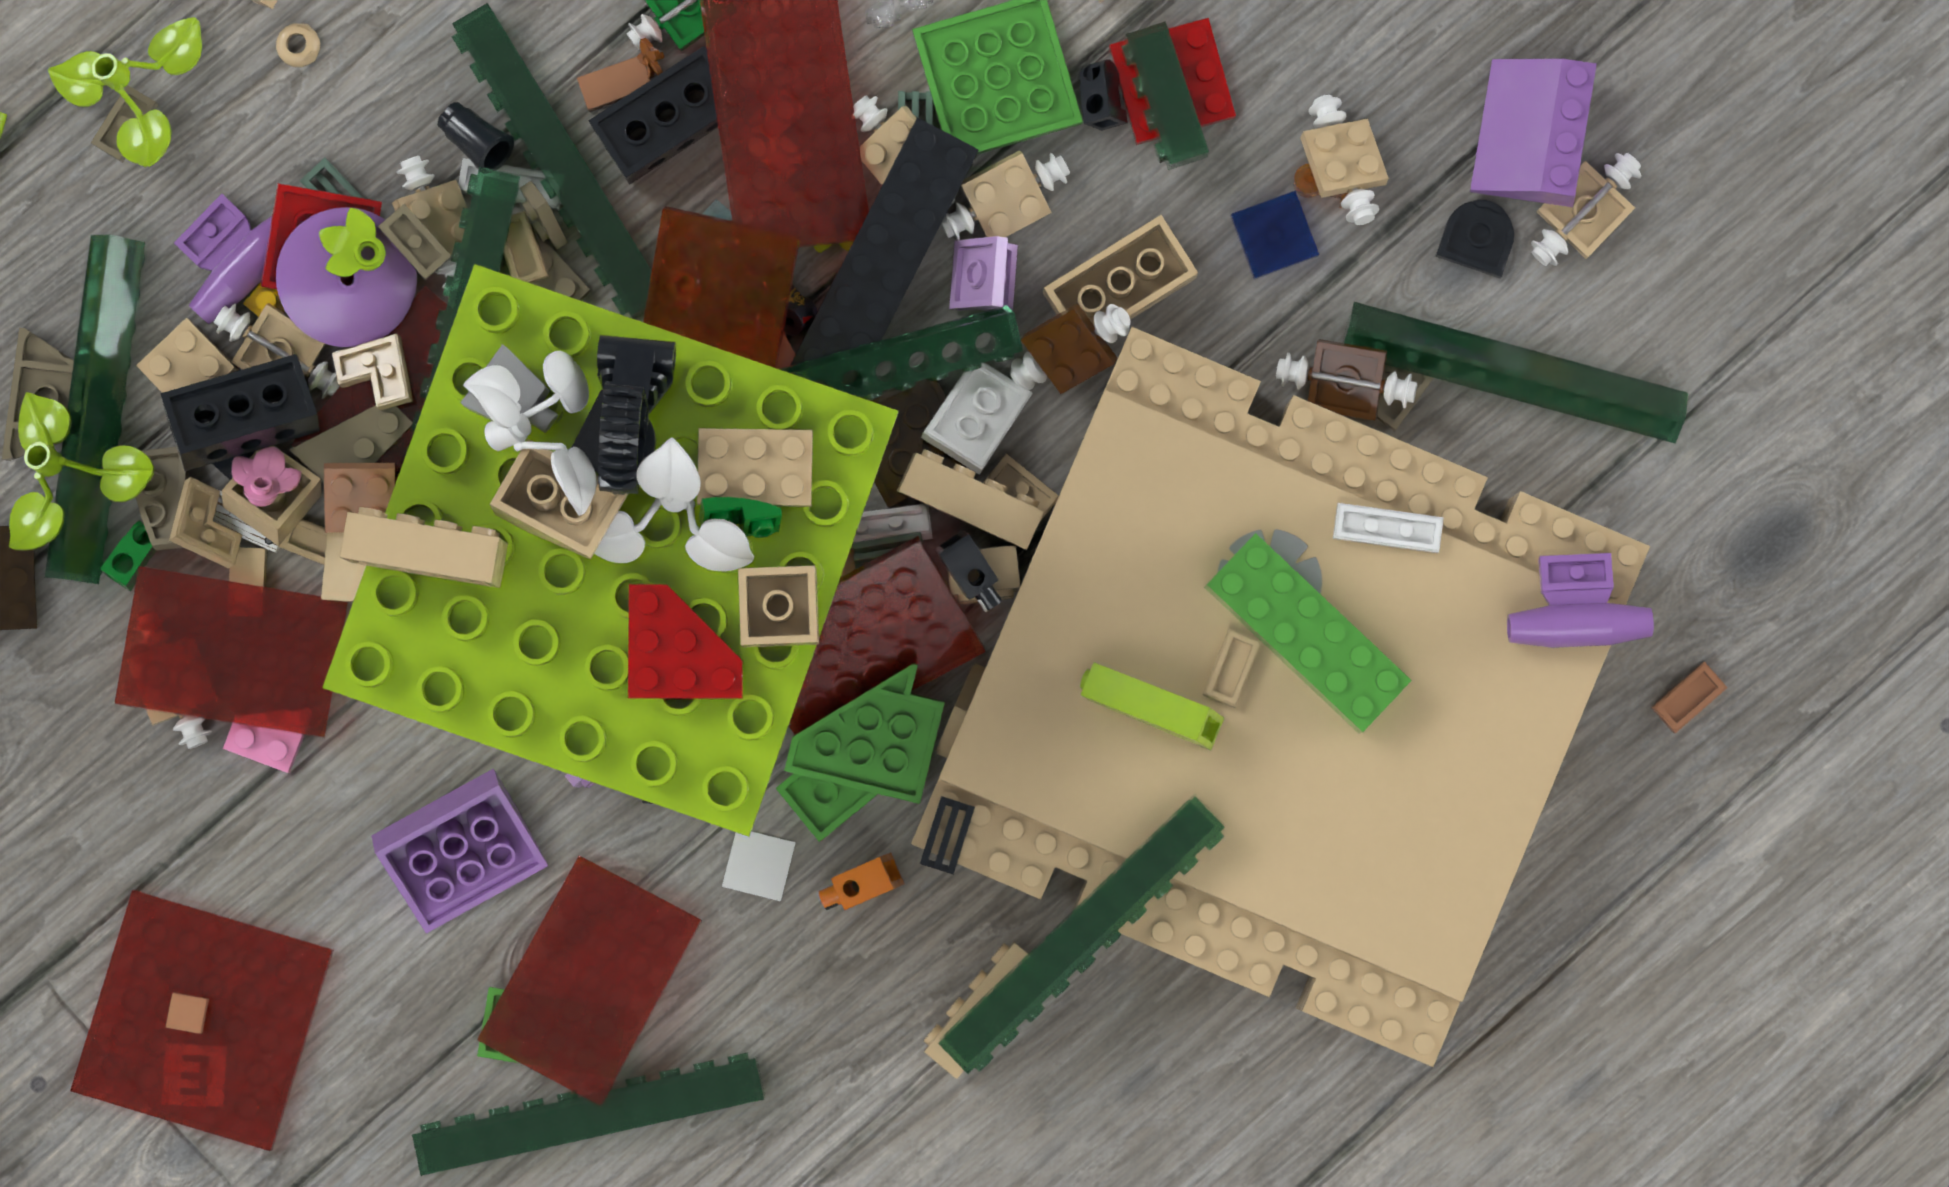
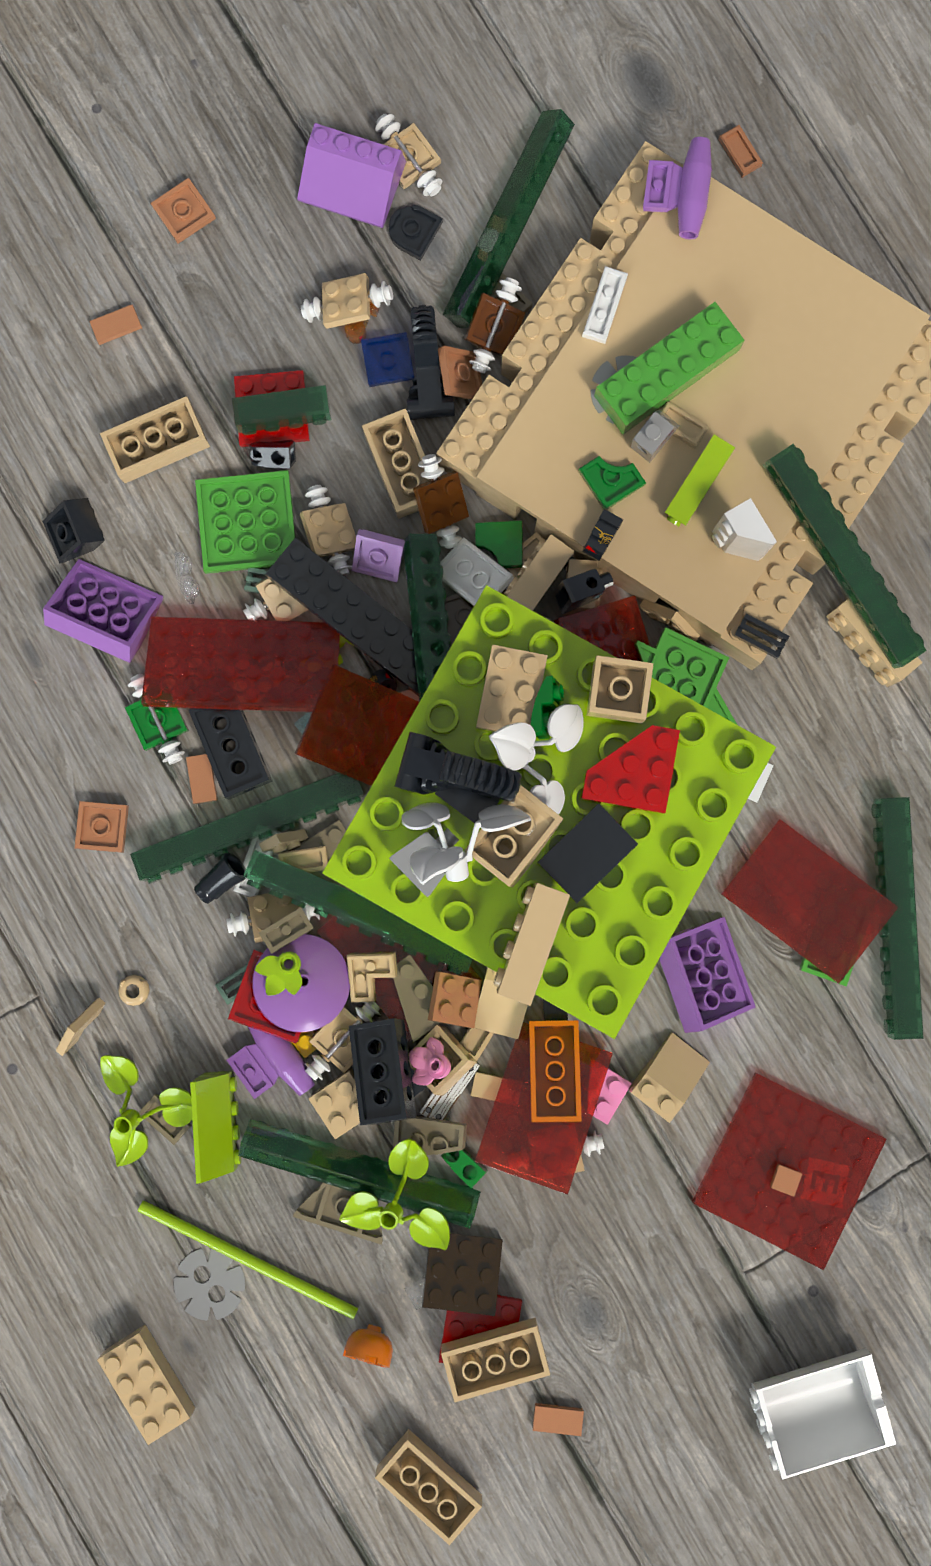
camera: 75 degrees left, 0 degrees up
(128, 194) = (214, 1125): none -> lime slope
(197, 530) = (454, 1116): tan tile -> none
(274, 653) = (555, 1071): none -> orange brick
(304, 825) = (669, 1077): none -> tan slope
(558, 605) = (587, 853): none -> black tile
(649, 57) = (189, 750): dark orange plant -> none
(872, 878) = (773, 696): orange torso -> none
(1036, 451) = (503, 540): none -> green tile
(1047, 581) = (602, 534): none -> black leg
(1080, 772) = (744, 532): none -> white slope
(1129, 579) = (610, 482): none -> green tile
(1204, 629) = (654, 435): none -> light grey torso
(1237, 305) = (427, 393): none -> black arm
(1266, 339) = (457, 372): none -> nougat plate

